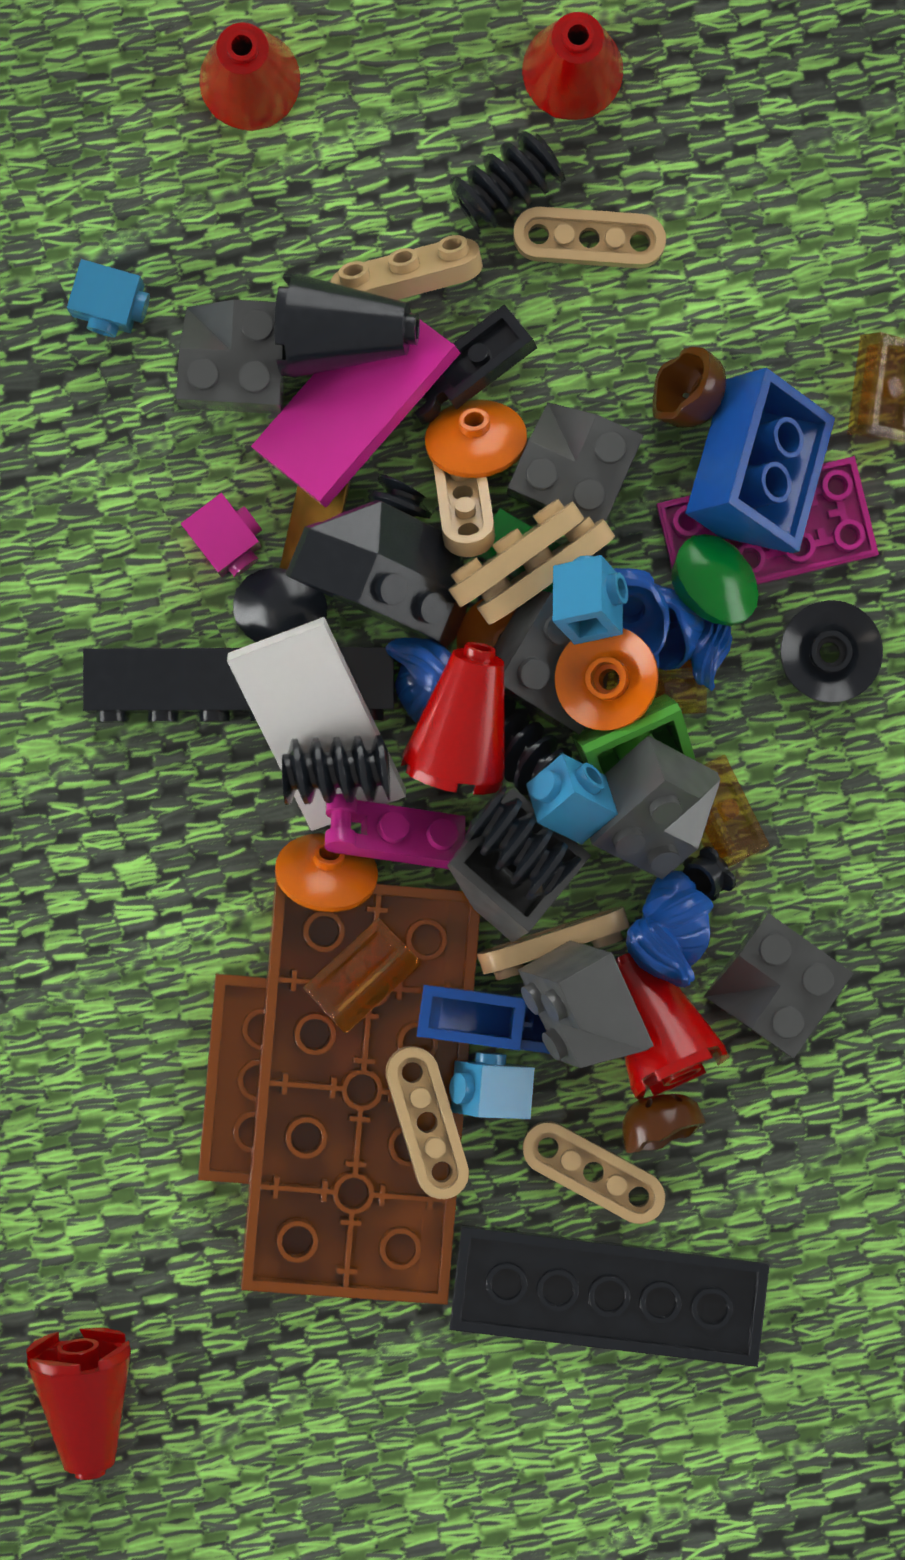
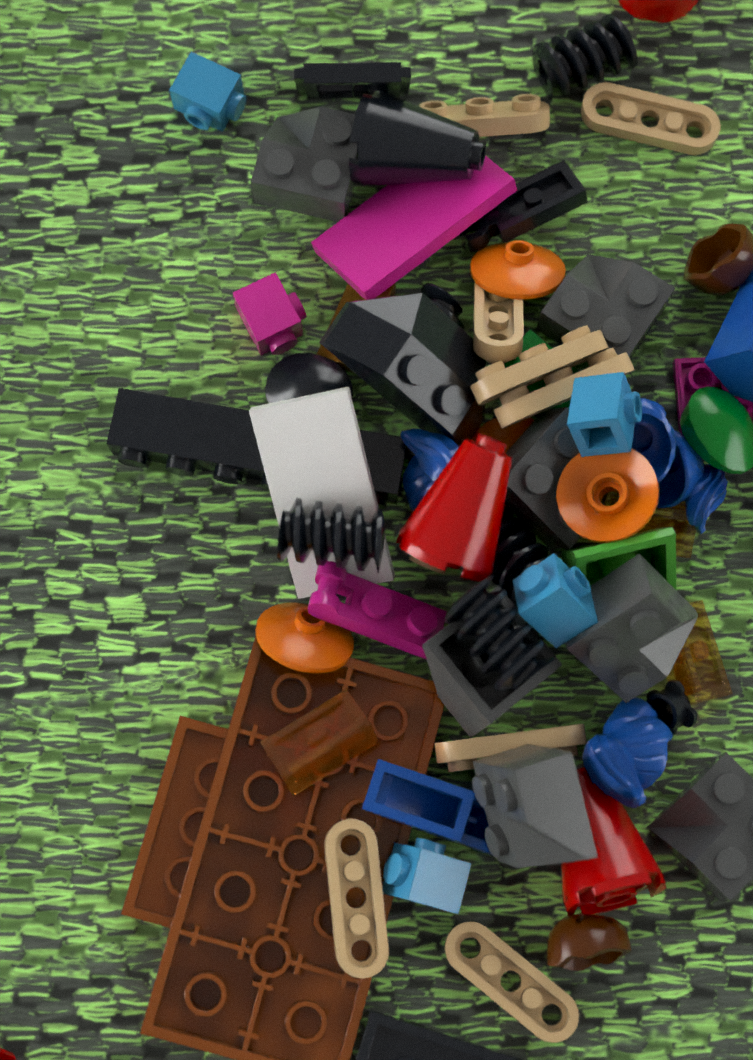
camera: 15 degrees right, 10 degrees down
(262, 265) = (351, 79): none -> black piece

